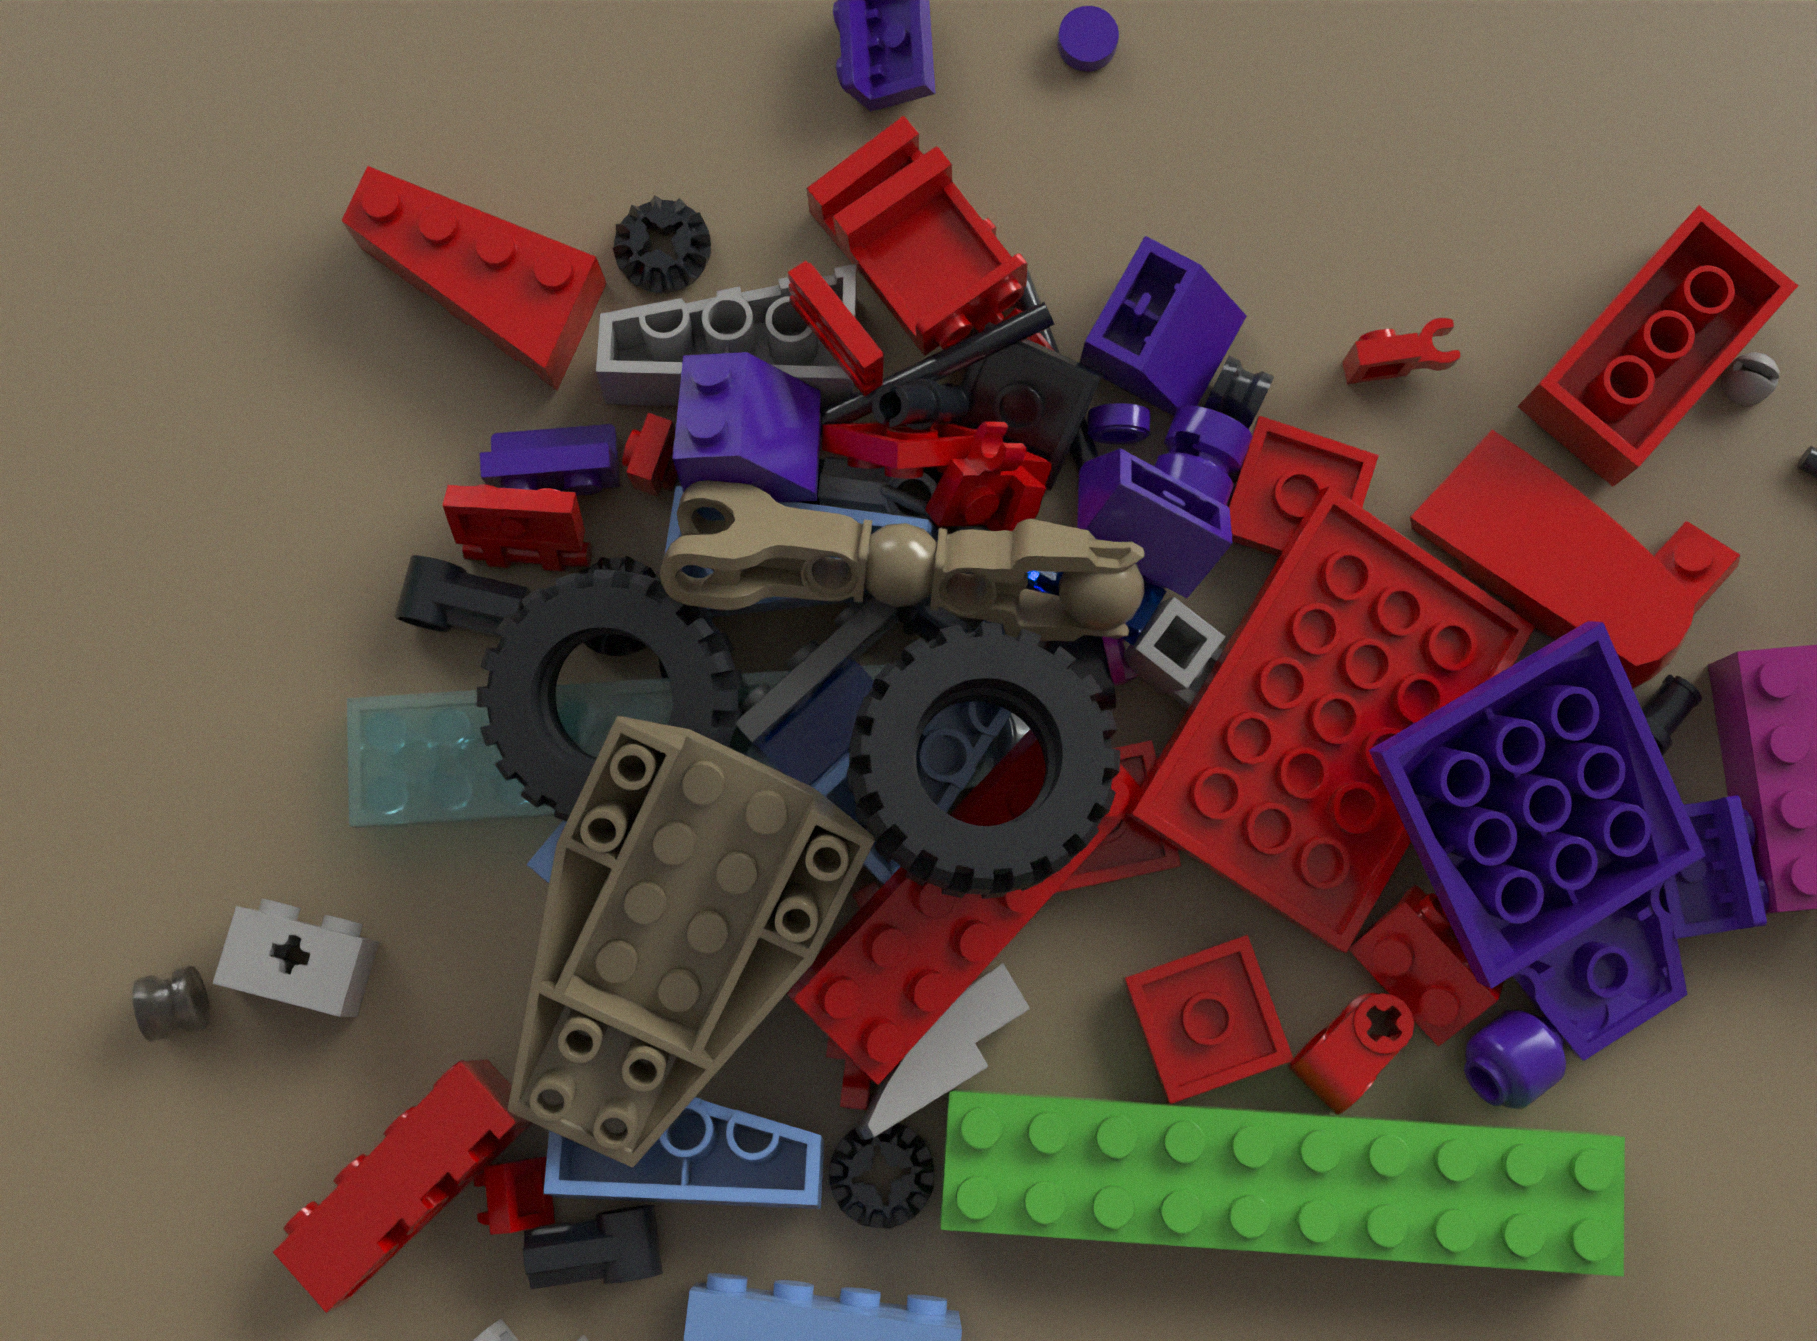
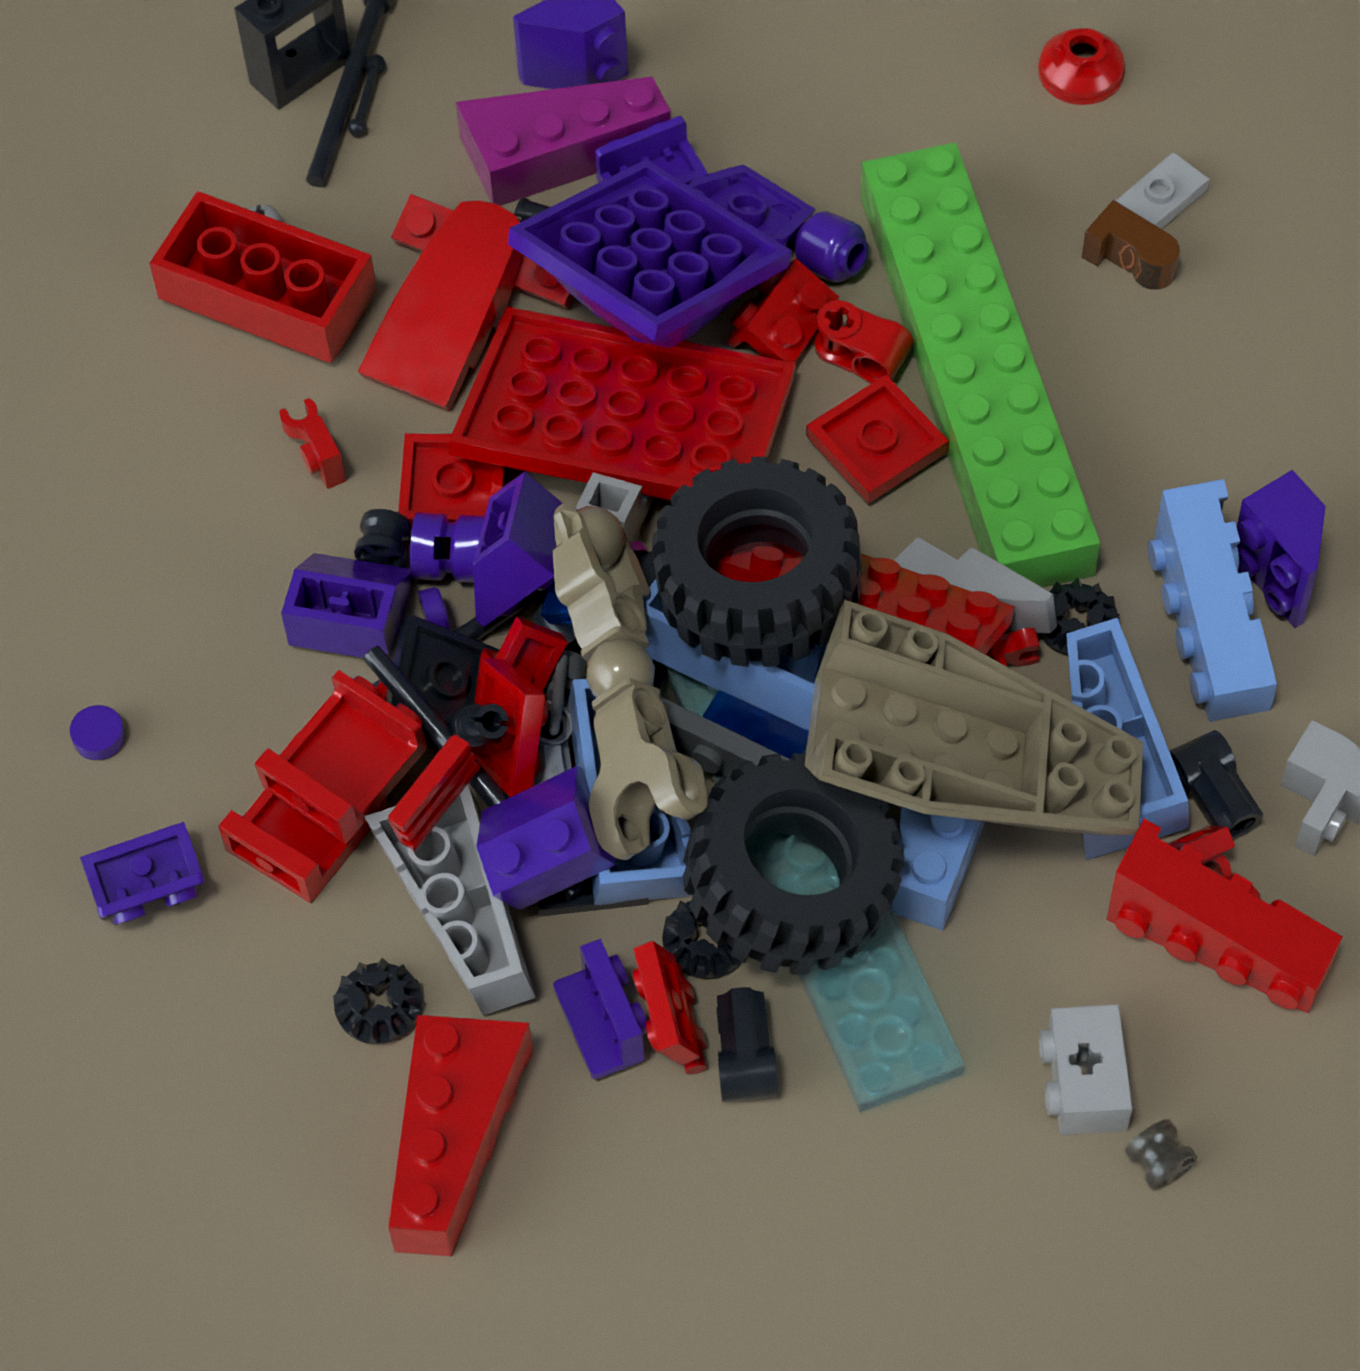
camera: 105 degrees left, 20 degrees down
(650, 456) = (577, 921): red plate -> none
(974, 485) = (535, 665): red plate -> none

